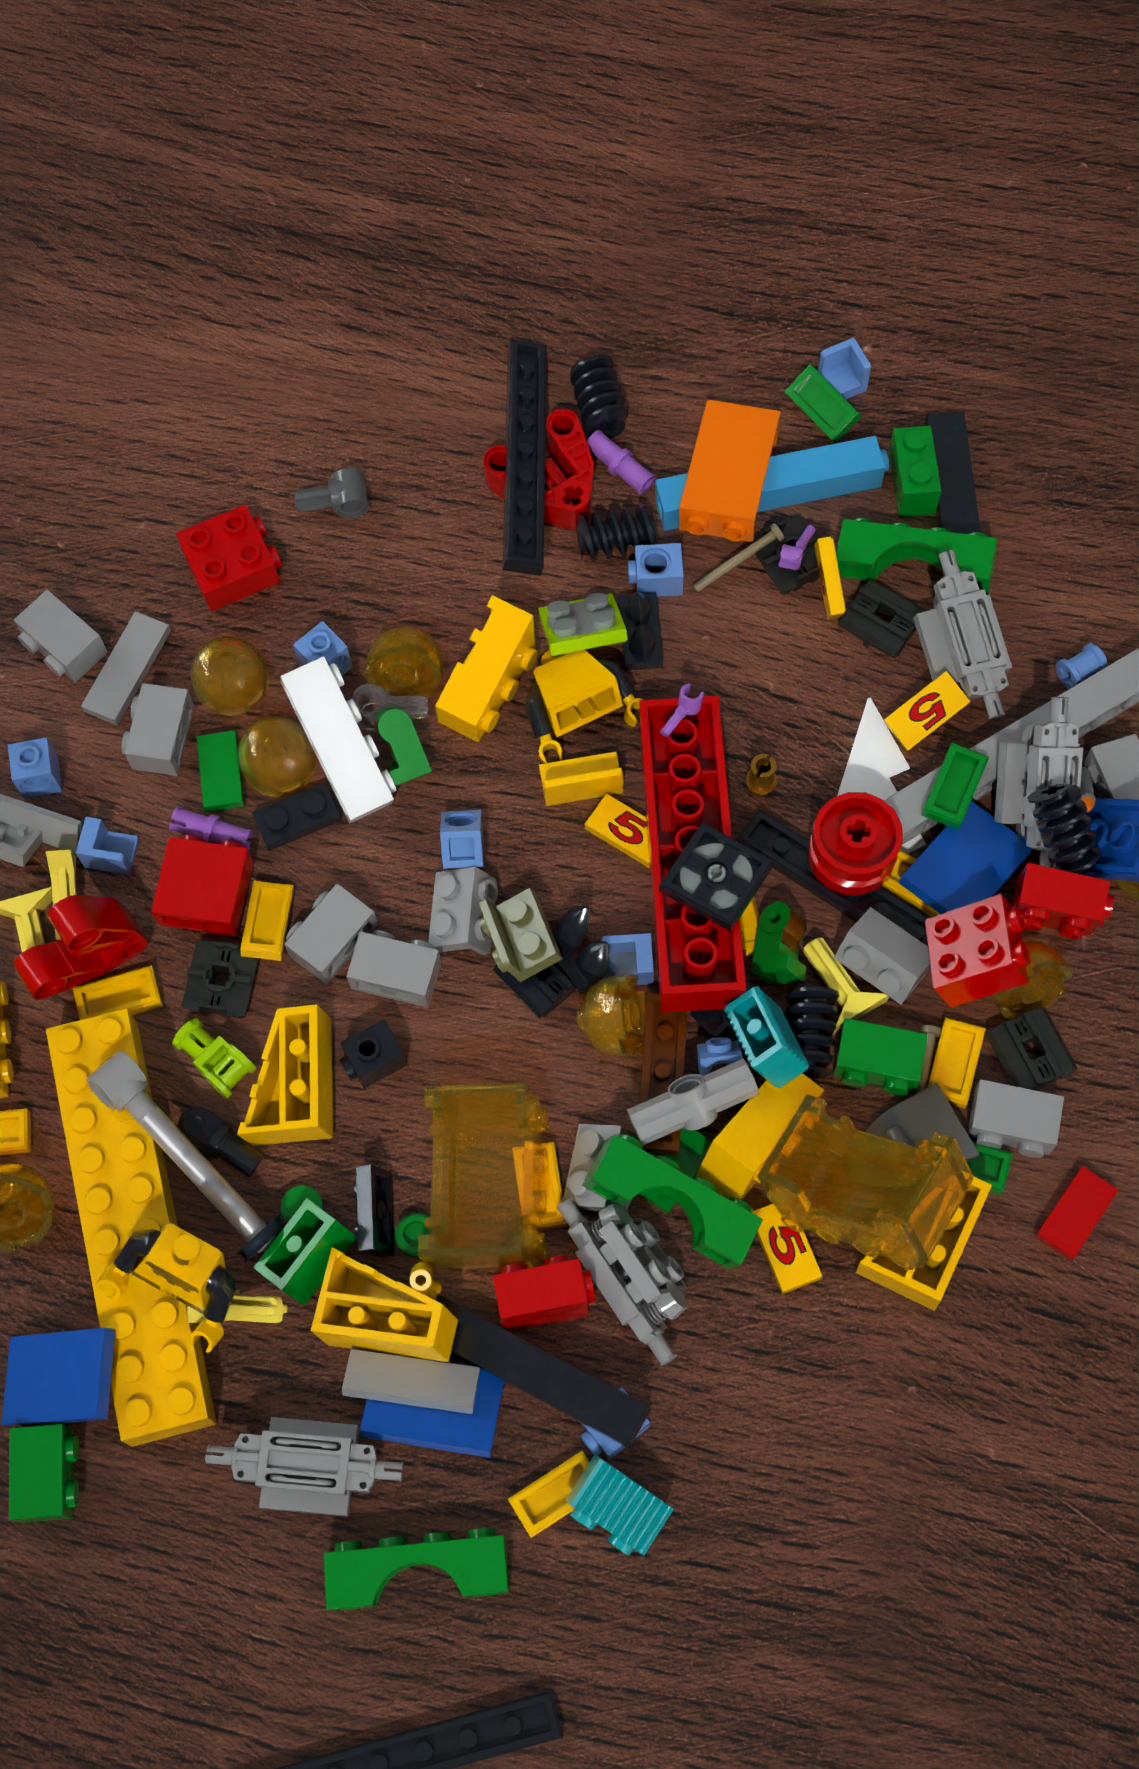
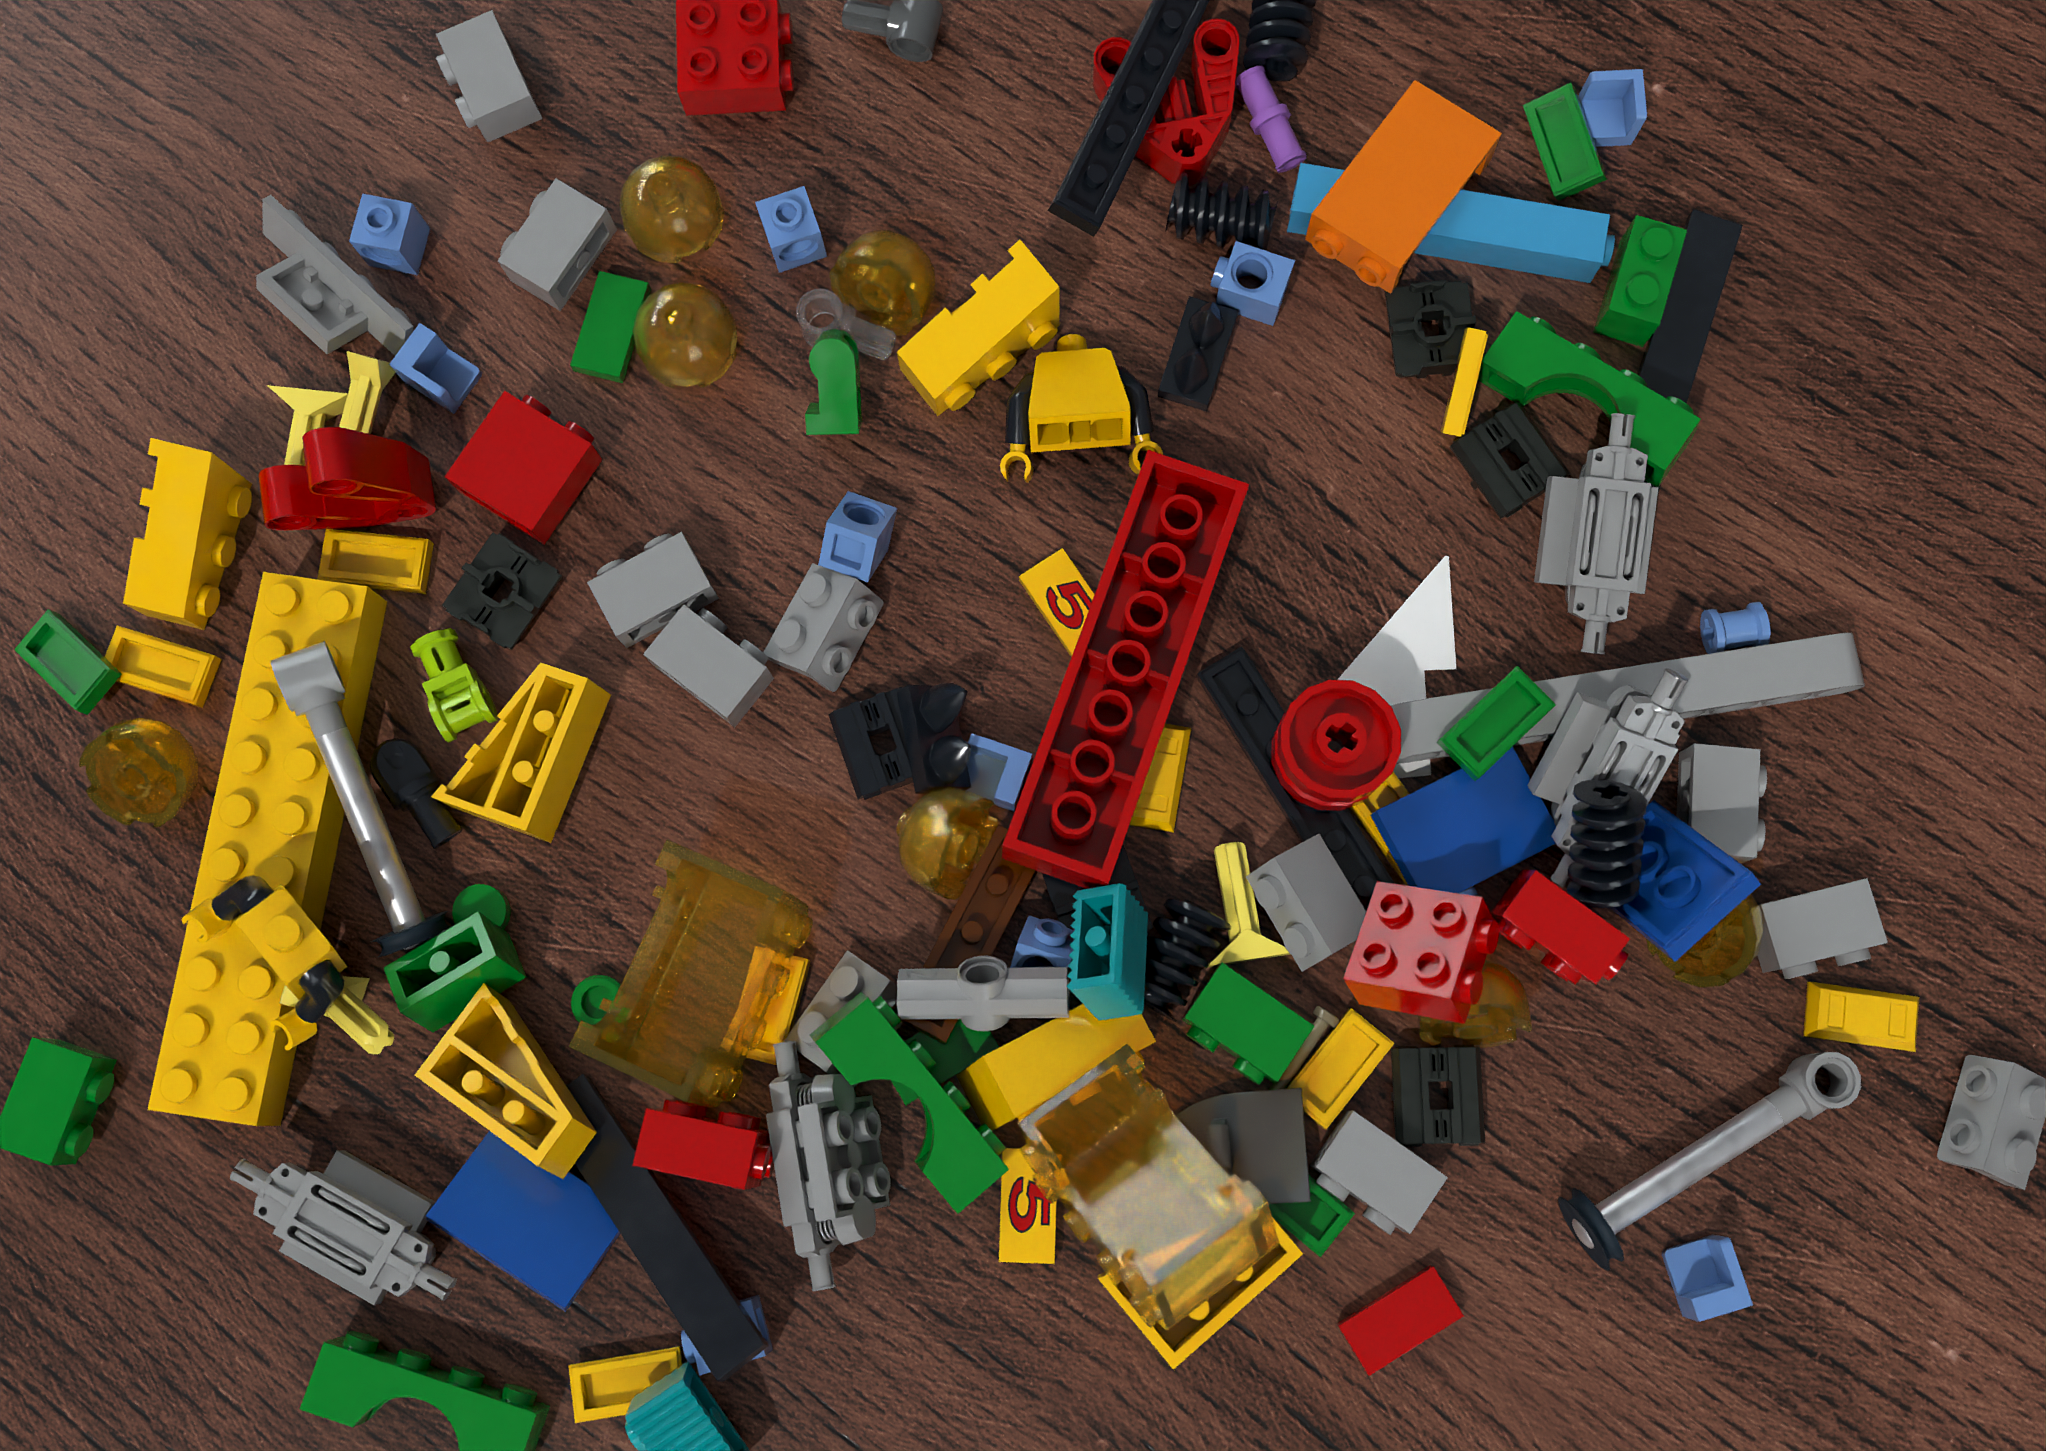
camera: 25 degrees right, 10 degrees up
(58, 1377) = (112, 1001): blue tile -> none
(126, 668) = (553, 148): light grey tile -> none
(208, 828) = (566, 397): medium lavender pin -> none
(267, 920) = (585, 540): yellow tile -> none
(296, 816) = (677, 422): black plate -> none
(337, 740) = (758, 346): white brick -> none
(372, 1055) = (638, 761): black brick -> none
(374, 1211) = (559, 955): black plate -> none
(411, 1381) = (511, 1182): light grey tile -> none
(422, 1280) = (572, 1072): yellow arm -> none
(520, 935) = (871, 689): olive bracket -> none
(581, 778) = (1040, 515): yellow panel -> none
(582, 624) = (1125, 317): piece -> none
(685, 707) = (1198, 484): medium lavender hand -> none
(716, 876) = (1135, 724): black piece -> none
(740, 557) = (1420, 295): dark tan piece -> none
(765, 771) = (1261, 617): pearl gold pin -> none
(778, 945) = (1186, 832): green leg -> none
(792, 555) = (1428, 334): medium lavender hand -> none
(926, 710) = (1508, 606): yellow tile -> none
(1087, 789) = (1662, 797): light grey piece -> none

